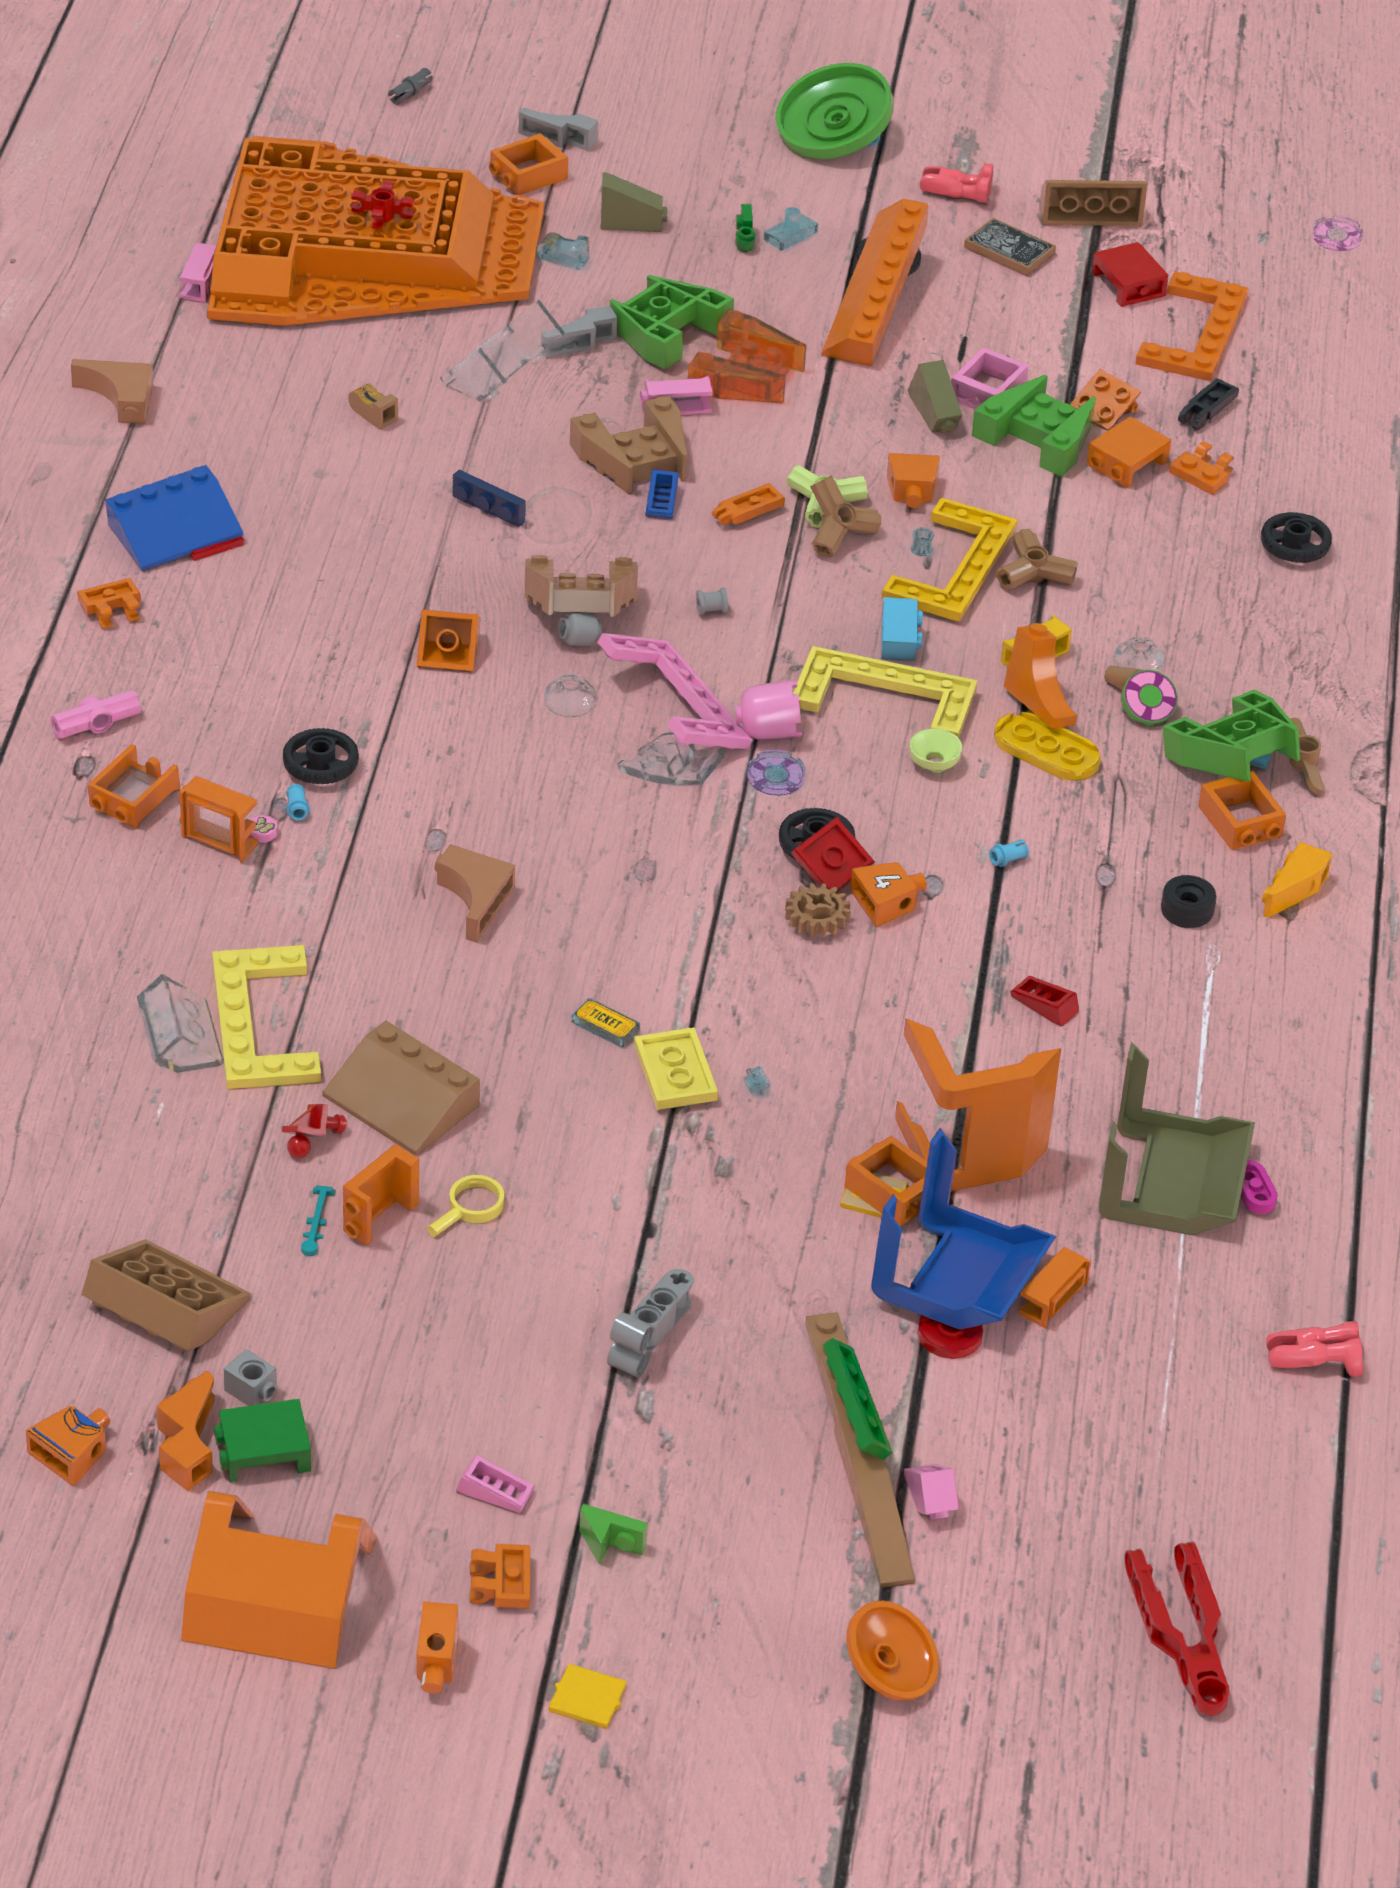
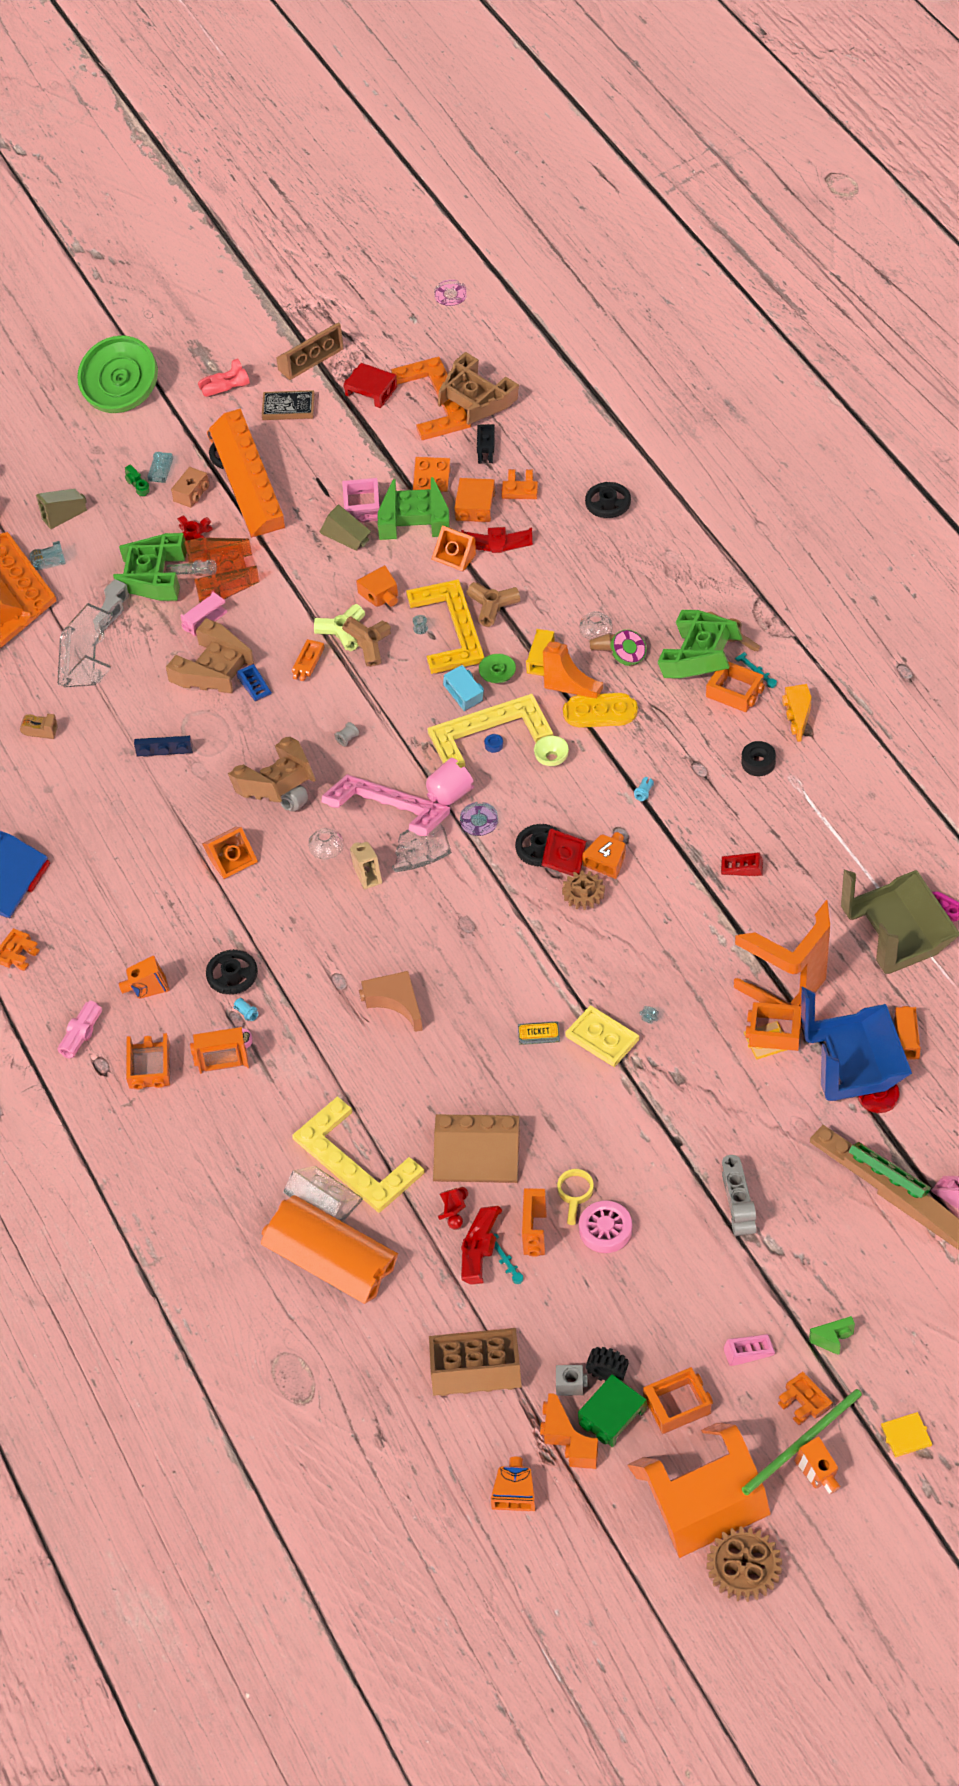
camera: 30 degrees left, 10 degrees up
(125, 1080) = (328, 1248): none -> orange cylinder
(217, 705) = (145, 979): none -> orange torso
(243, 1690) = (740, 1583): none -> medium nougat gear
(298, 1183) = (478, 1244): none -> red plate
(304, 1381) = (606, 1362): none -> black tyre
(356, 1457) = (668, 1384): none -> orange window
(465, 1607) = (804, 1439): none -> bright green piece
(467, 1265) = (605, 1227): none -> bright pink wheel
(589, 728) = (364, 855): none -> tan torso
(714, 343) = (197, 568): none -> clear pin
(756, 306) = (192, 529): none -> red pin
(801, 265) = (190, 487): none -> nougat brick
(879, 708) = (493, 743): none -> blue tile
(964, 633) = (497, 668): none -> bright green dish
(1047, 487) = (454, 548): none -> orange slope
(1113, 508) = (499, 541): none -> red plate
(1243, 339) = (474, 392): none -> medium nougat wedge
(1296, 835) = (771, 683): none -> teal piece

